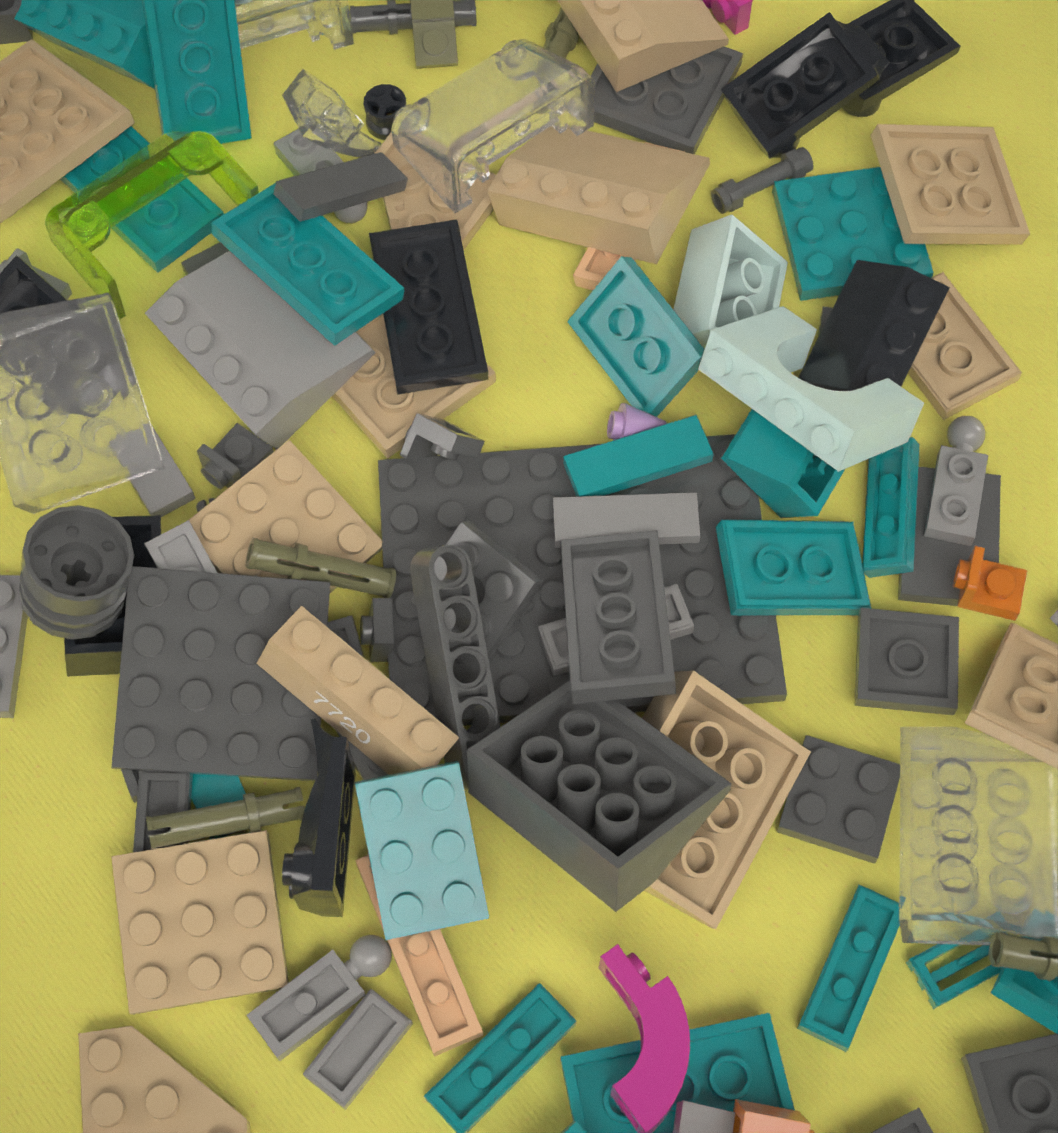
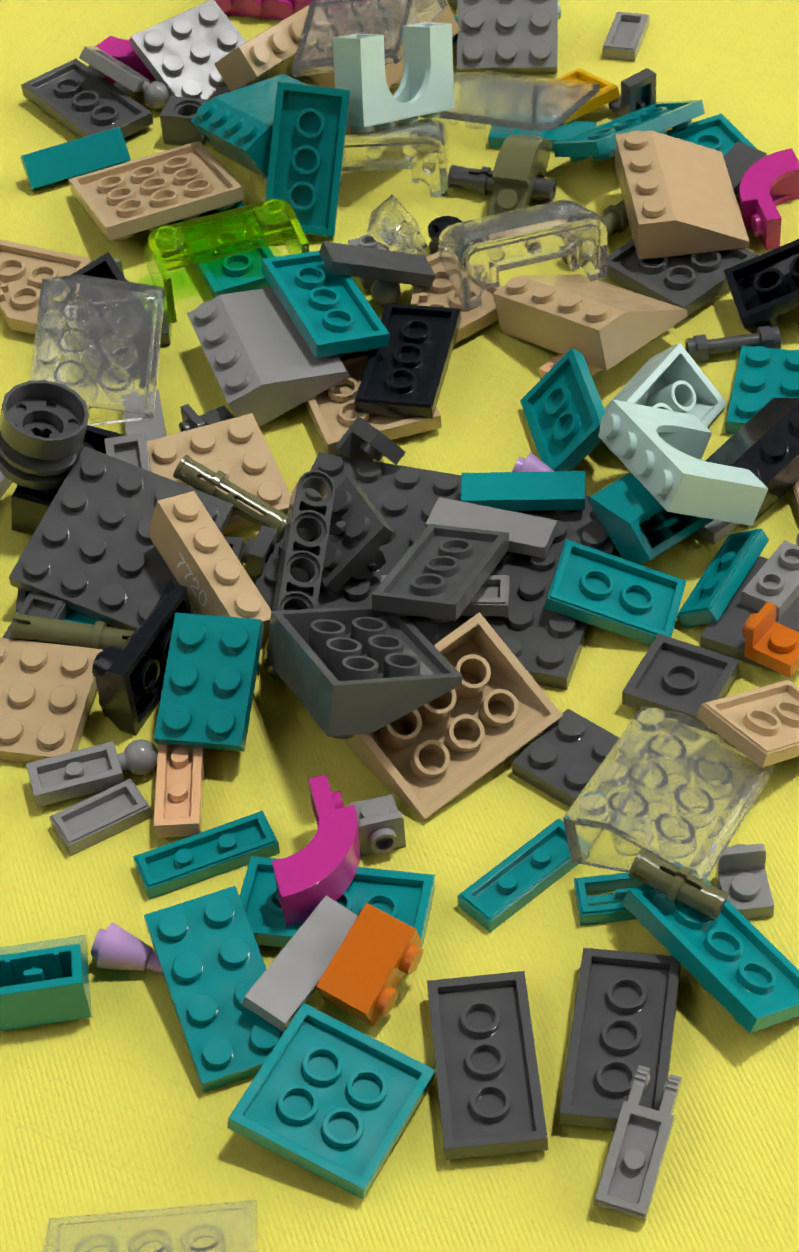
camera: 25 degrees right, 20 degrees down
(671, 953) = (379, 825): none -> light grey bracket

